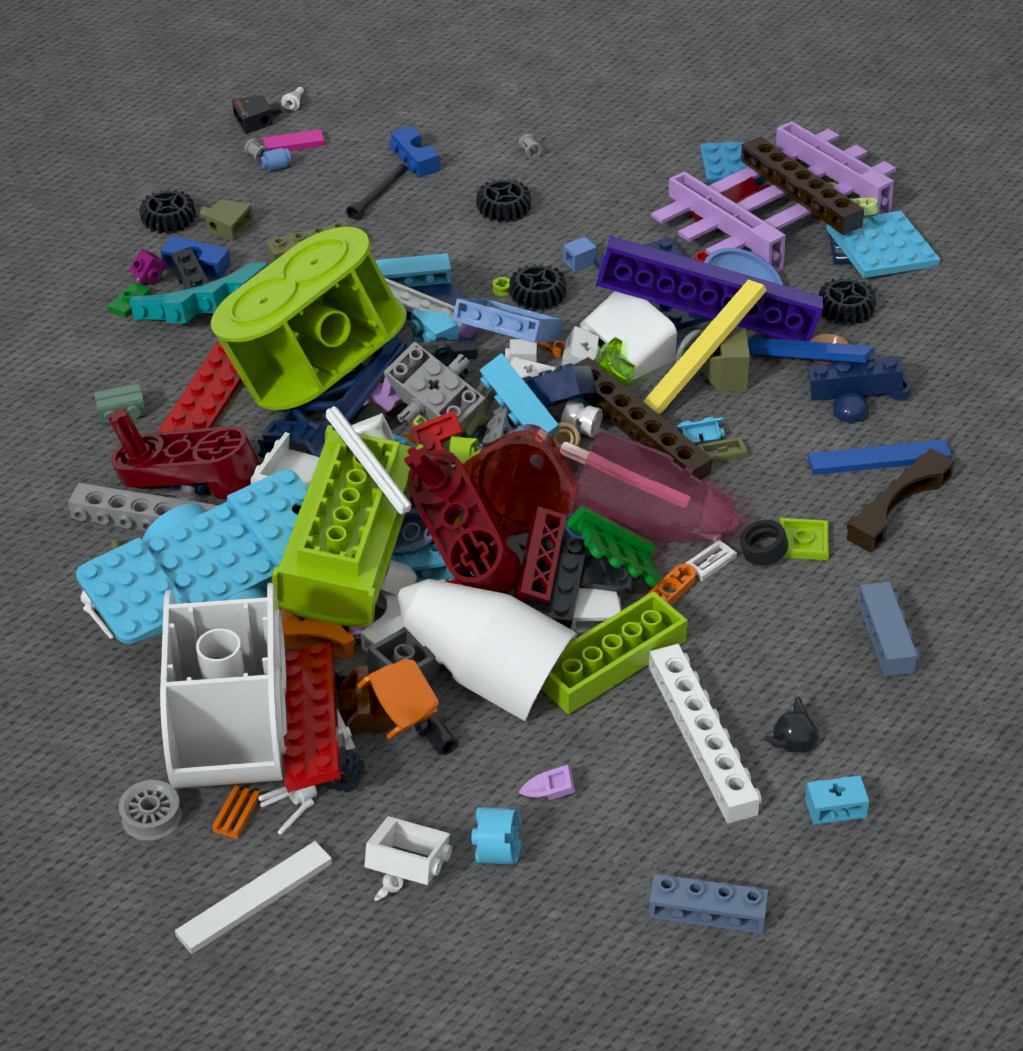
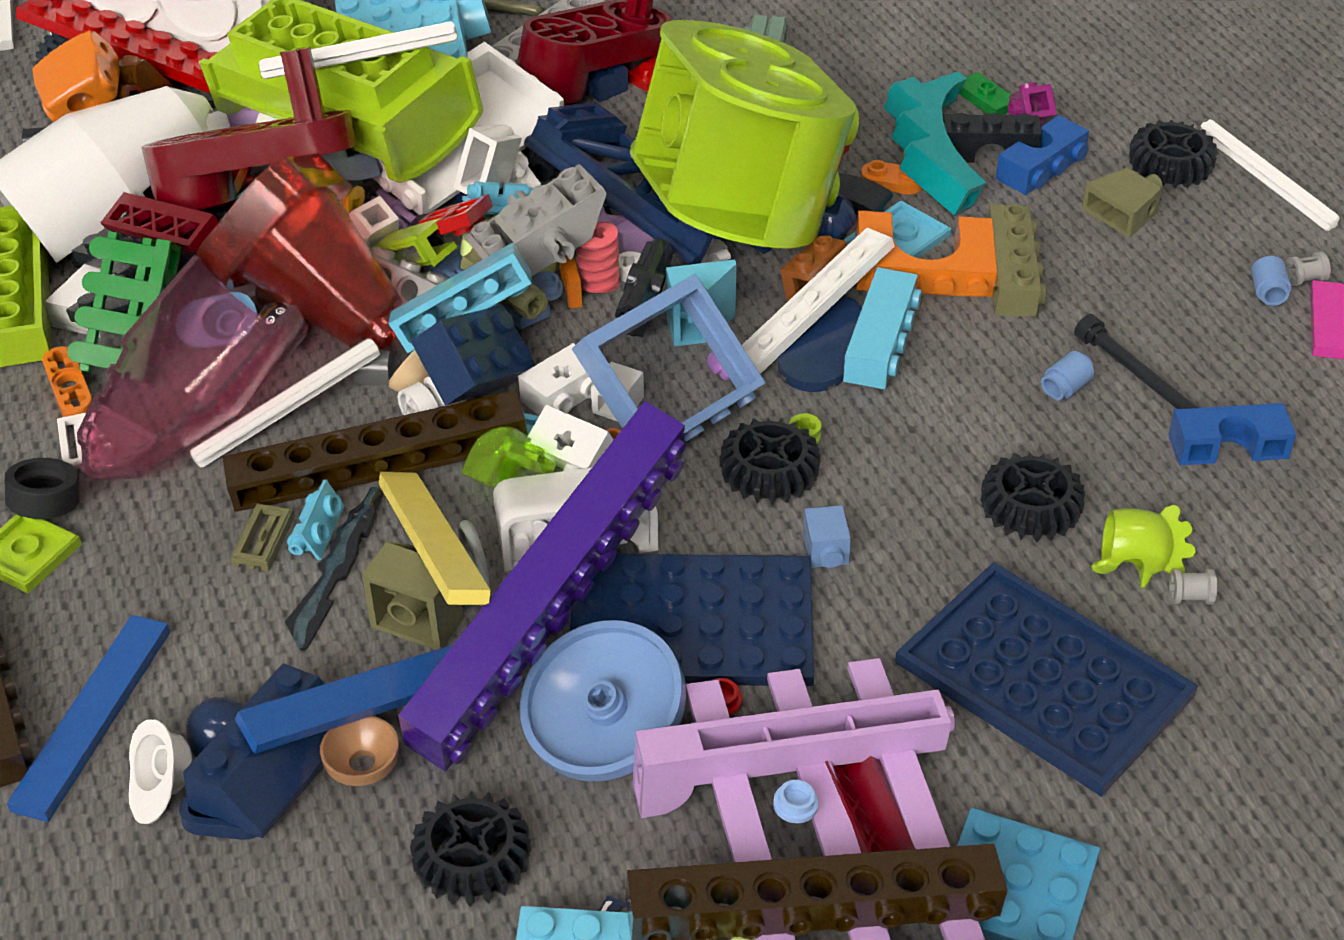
camera: 115 degrees right, 0 degrees up
(164, 180) = (1271, 177): none -> white axle
(400, 209) = (1067, 375): none -> medium blue brick
(518, 158) = (1146, 539): none -> lime piece
(615, 176) = (1047, 677): none -> dark blue plate
(748, 414) = (336, 566): none -> black sword
(758, 204) = (795, 801): none -> light blue plate
(896, 407) = (155, 769): none -> white piece

